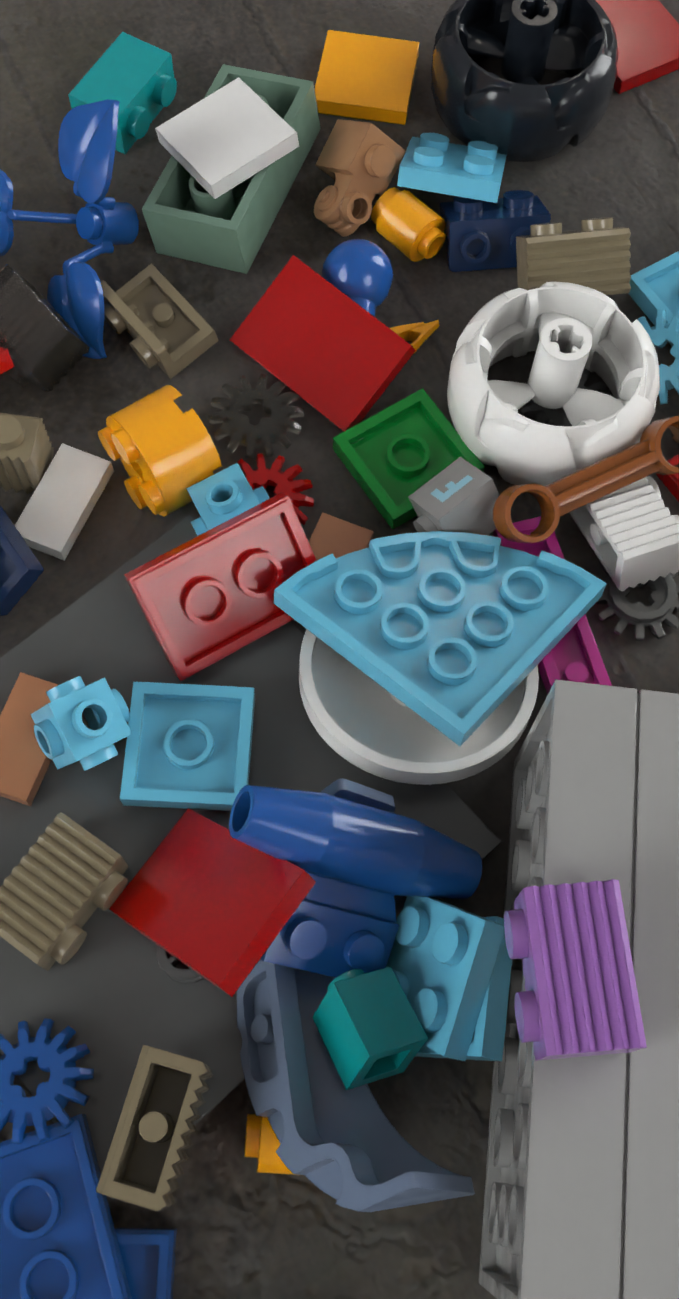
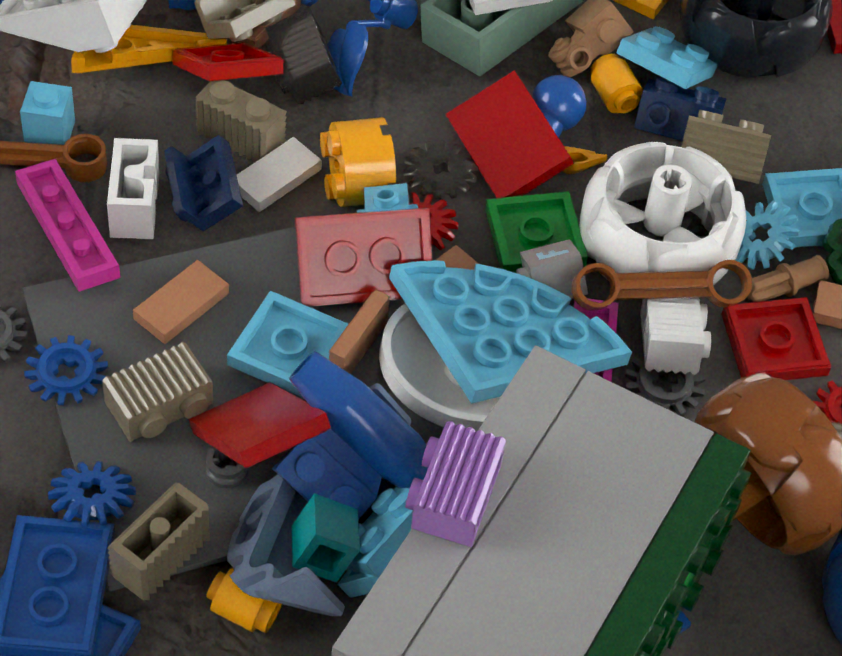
camera: 20 degrees right, 15 degrees down
(61, 727) = (223, 297): medium azure brick -> none
(159, 321) = (398, 83): dark tan bracket -> none
(270, 698) = (361, 332): none -> nougat tile

